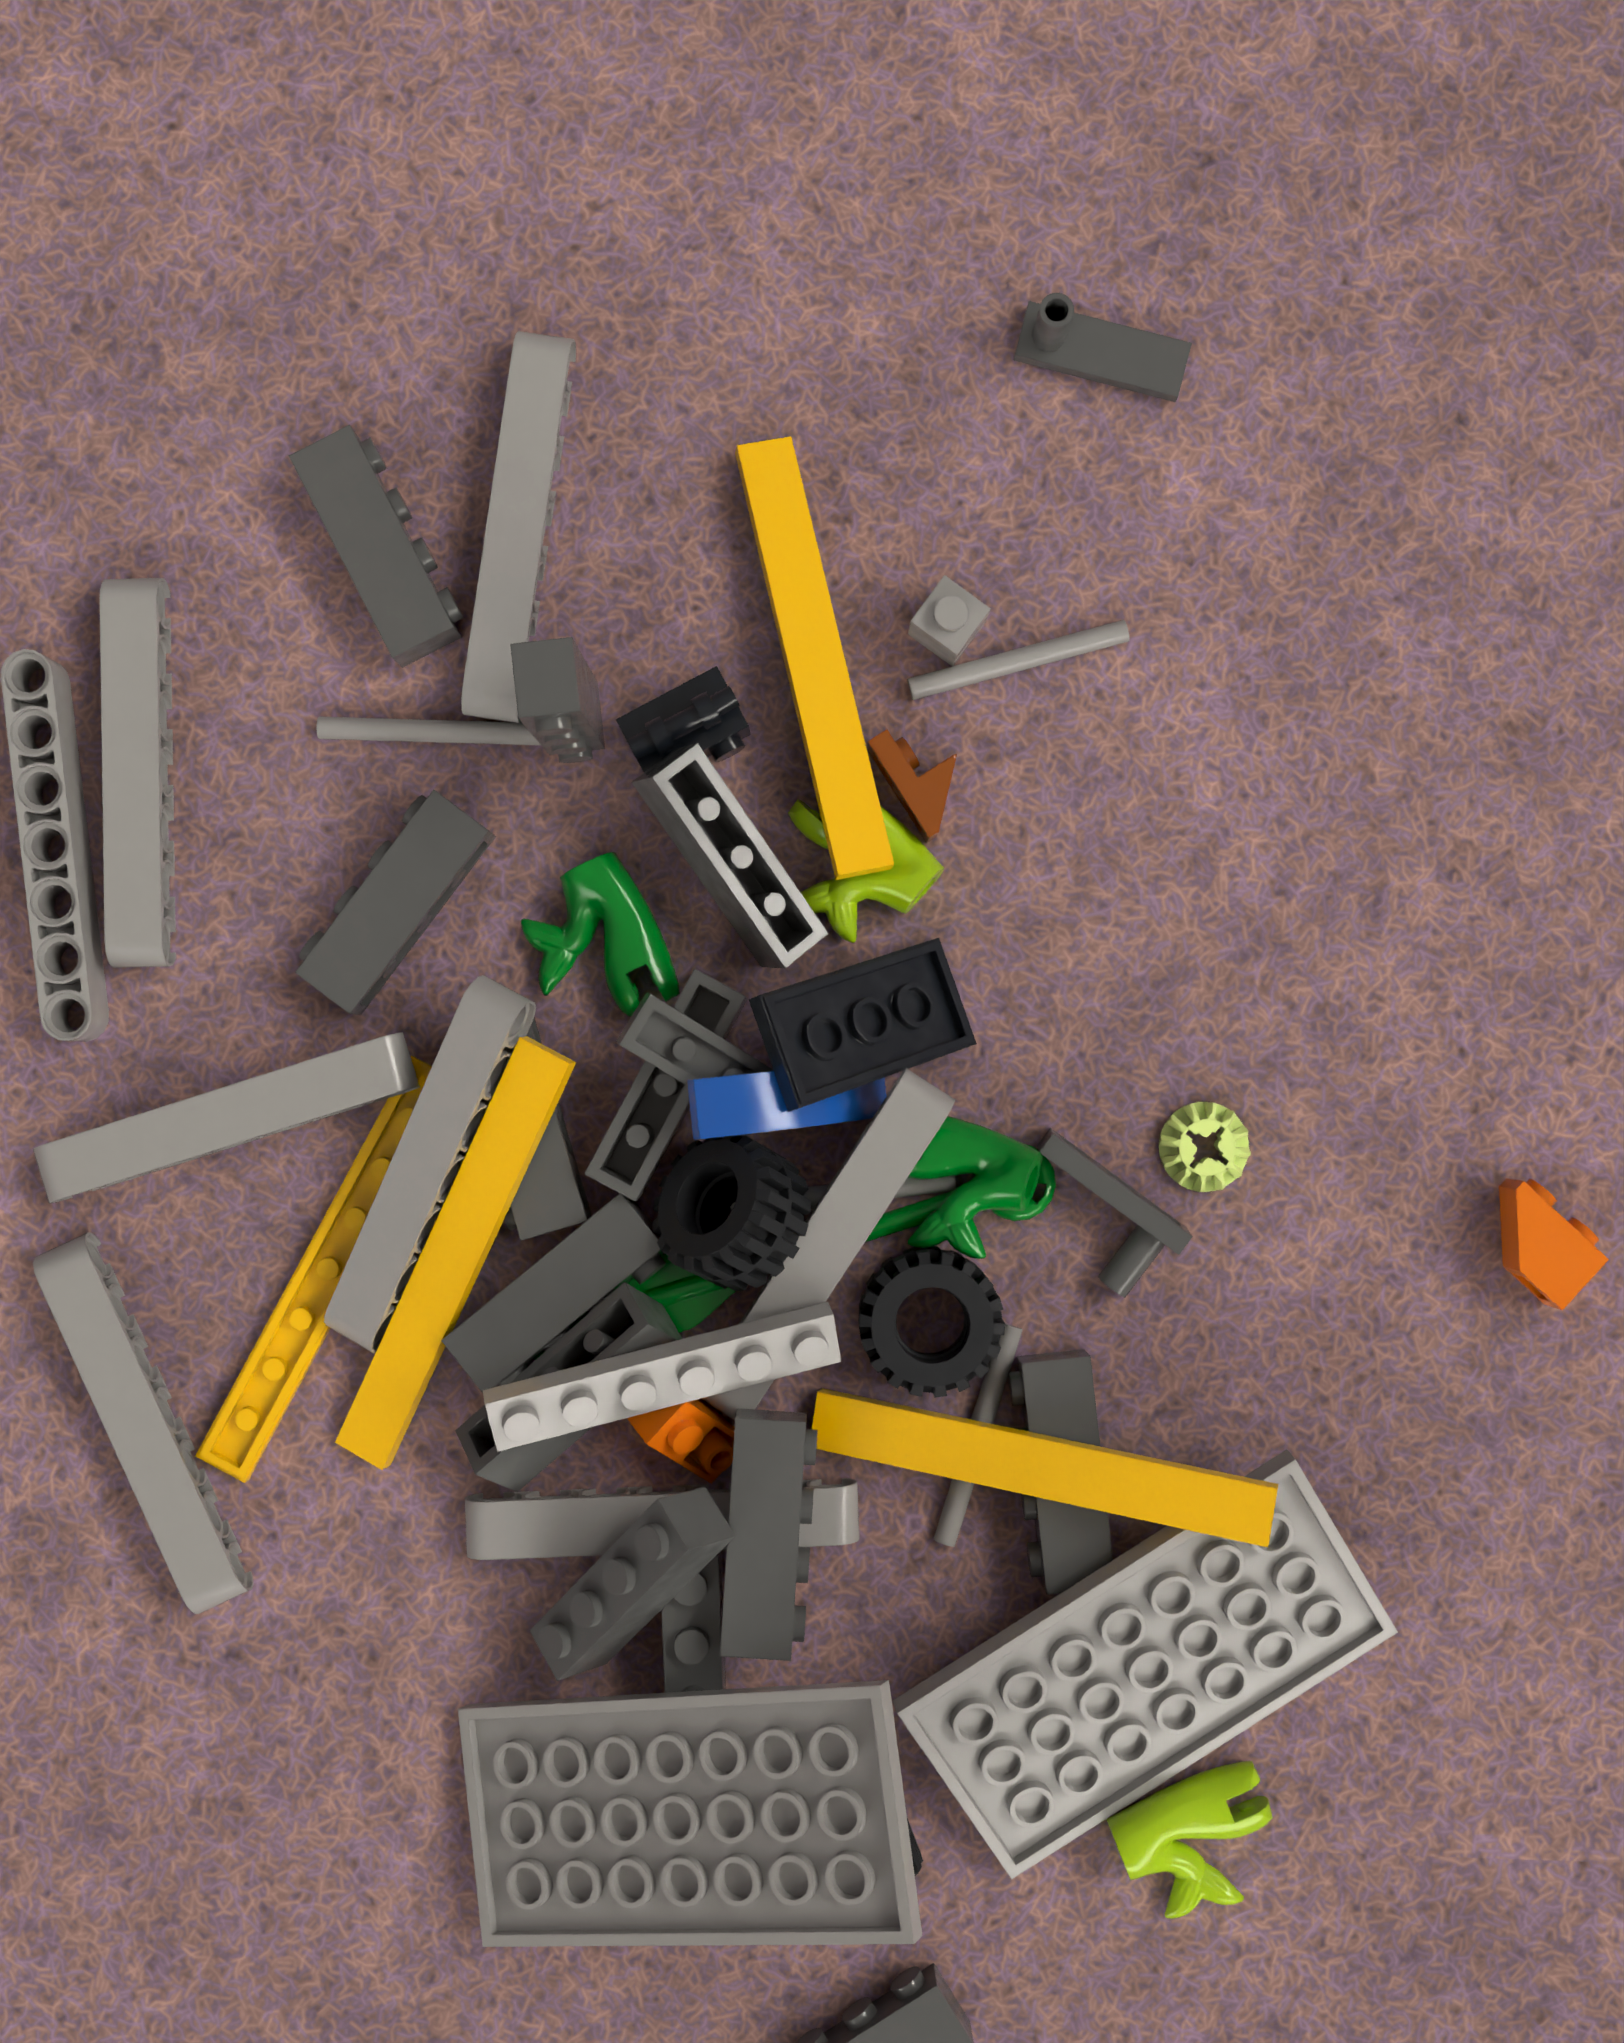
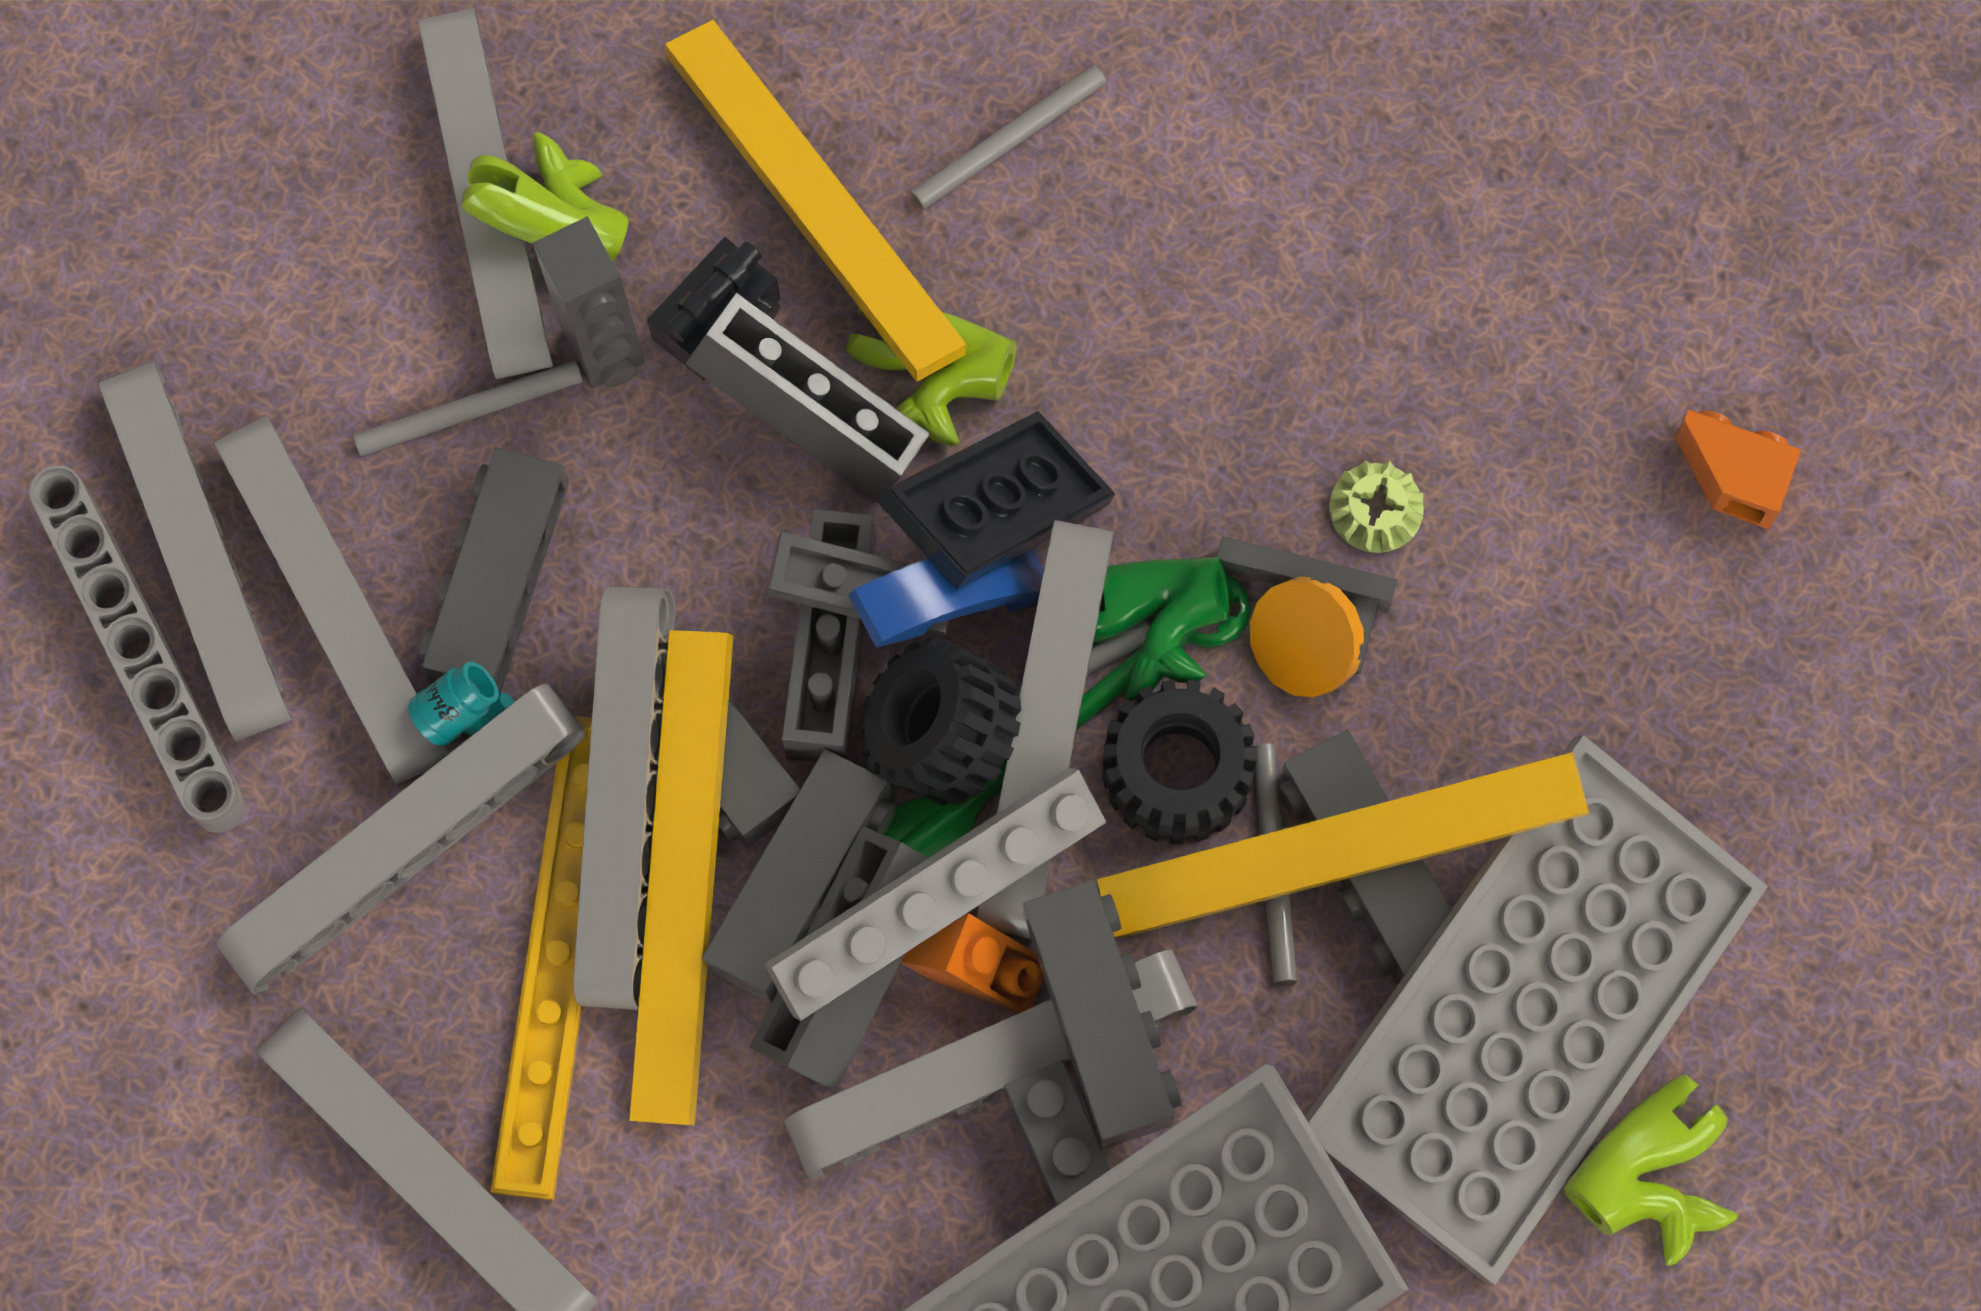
camera: 25 degrees left, 15 degrees down
(240, 867) = (328, 596): none -> light grey beam
(312, 1022) = (457, 704): none -> teal piece
(376, 546) = (355, 256): dark grey brick -> none
(573, 591) = (528, 211): none -> lime piece
(631, 935) = (697, 485): green piece -> none
(632, 1582) = (985, 1111): dark grey brick -> none
(920, 796) = (962, 285): dark orange slope -> none
(948, 621) = (928, 121): light grey brick -> none
(1090, 1253) = (1306, 636): none -> light orange tile

